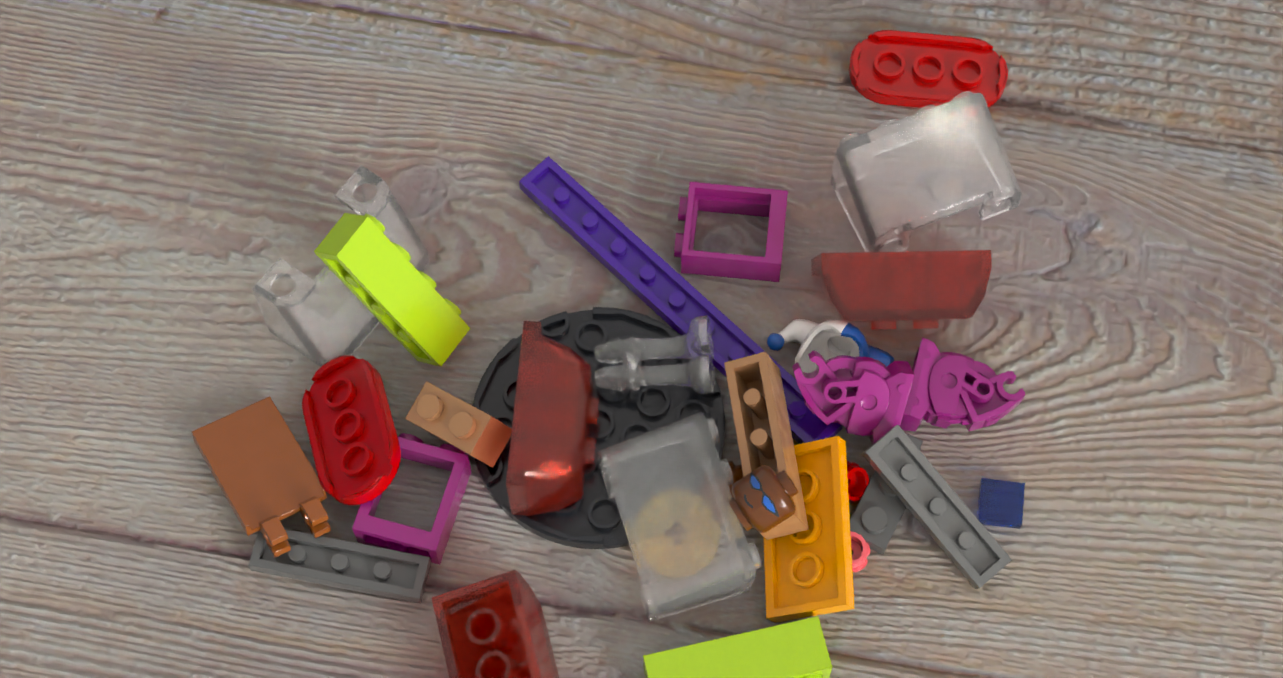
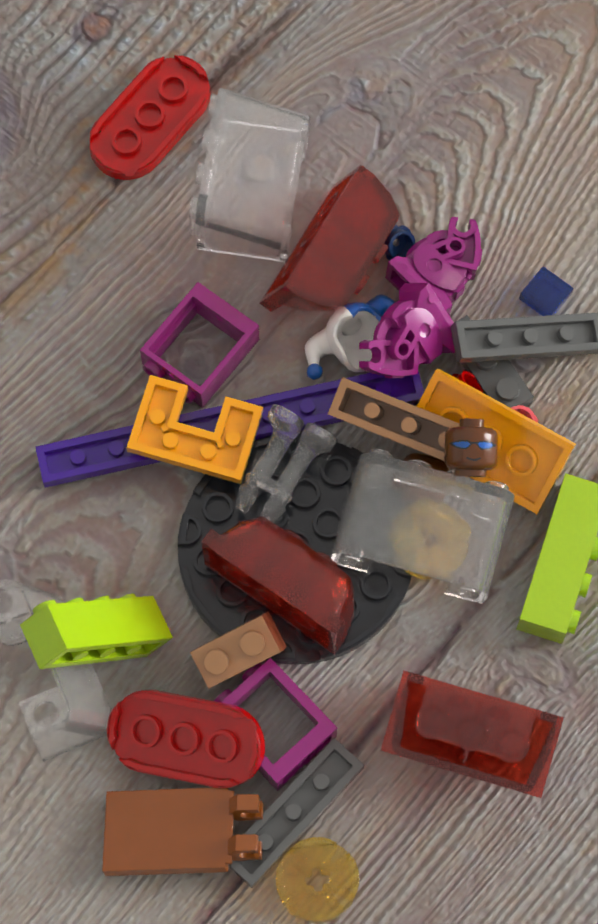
camera: 60 degrees left, 5 degrees up
(263, 617) = (333, 862): none -> clear yellow plate
(635, 301) = (215, 453): none -> light orange plate
(955, 328) = (404, 242): none -> dark blue plate

